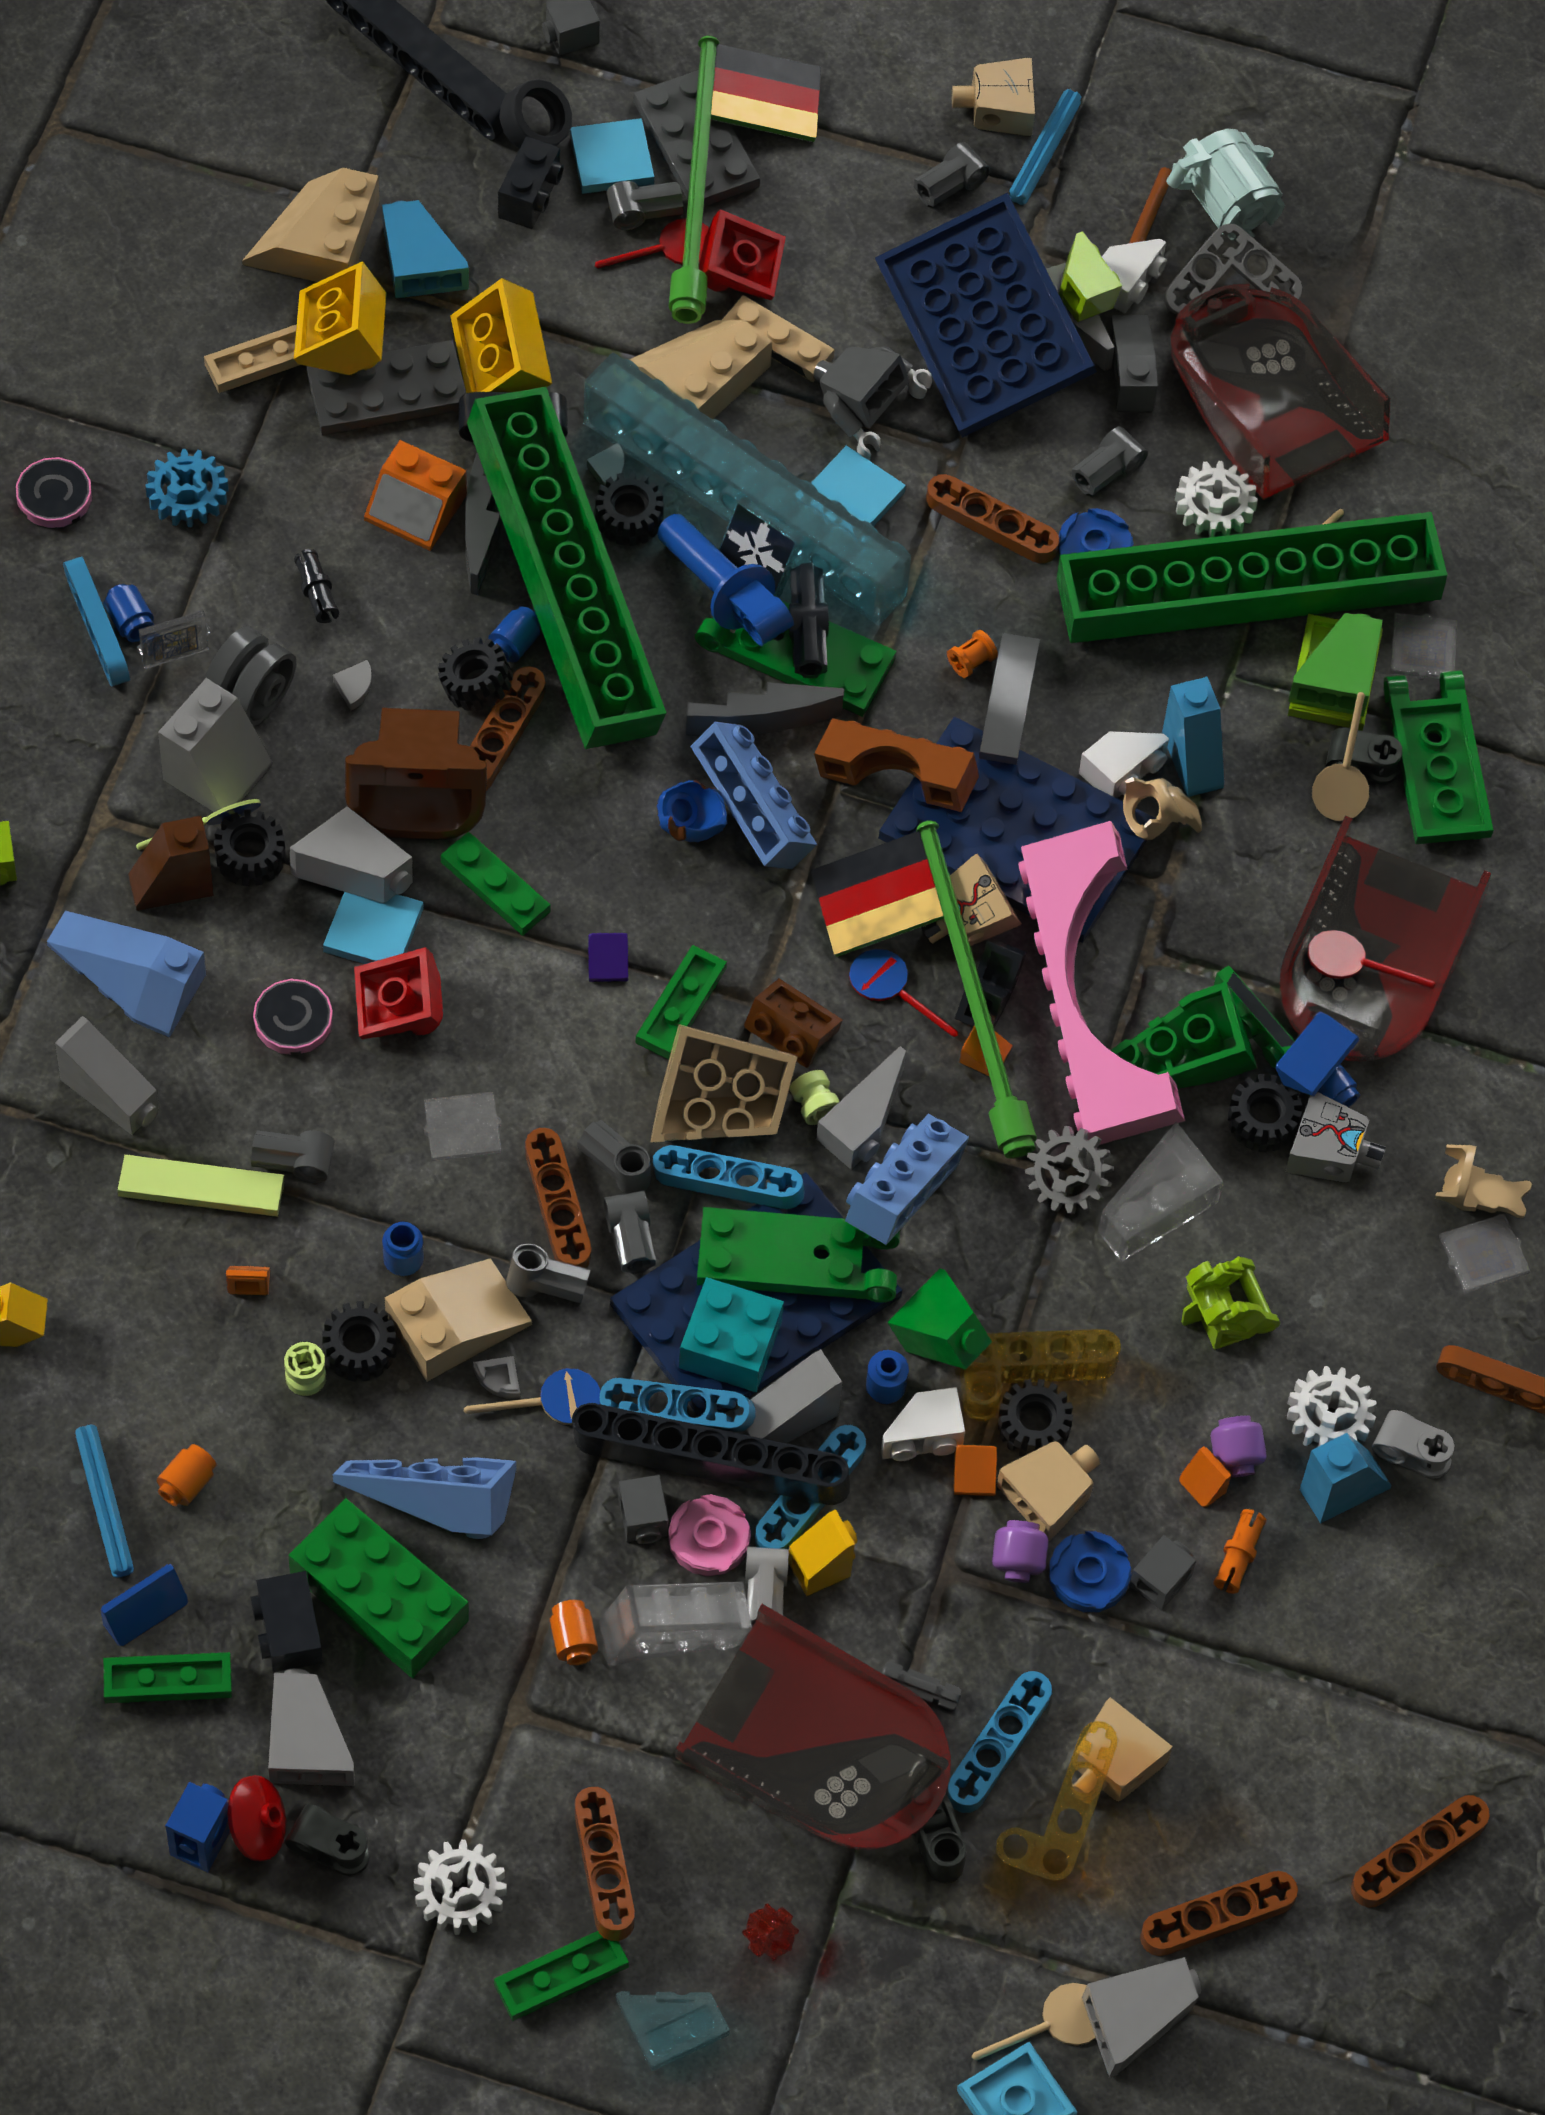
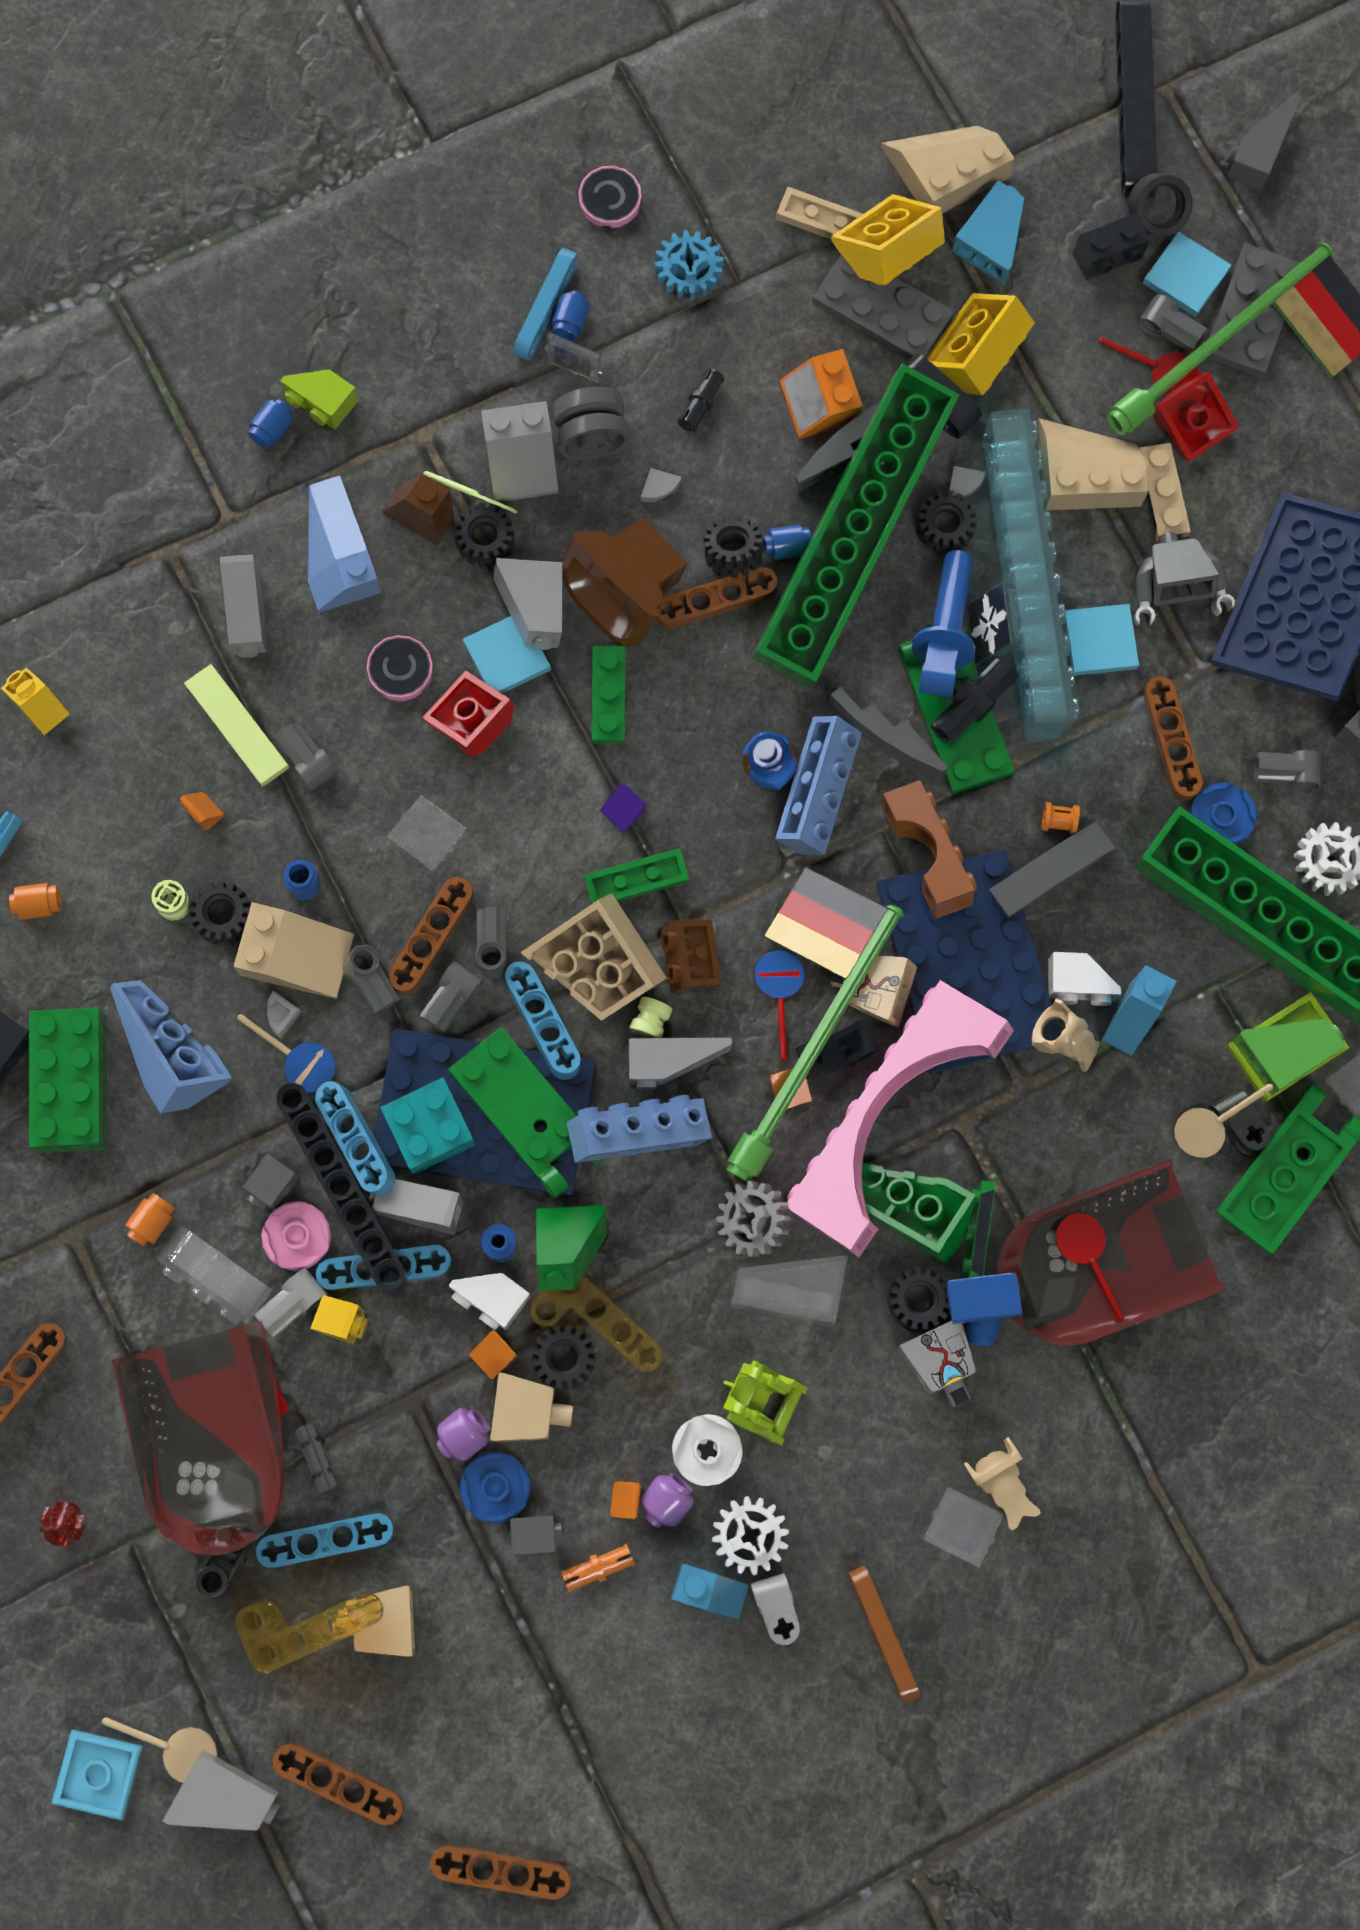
camera: 45 degrees right, 15 degrees up
(1234, 1361) = (726, 1443): none -> white plate

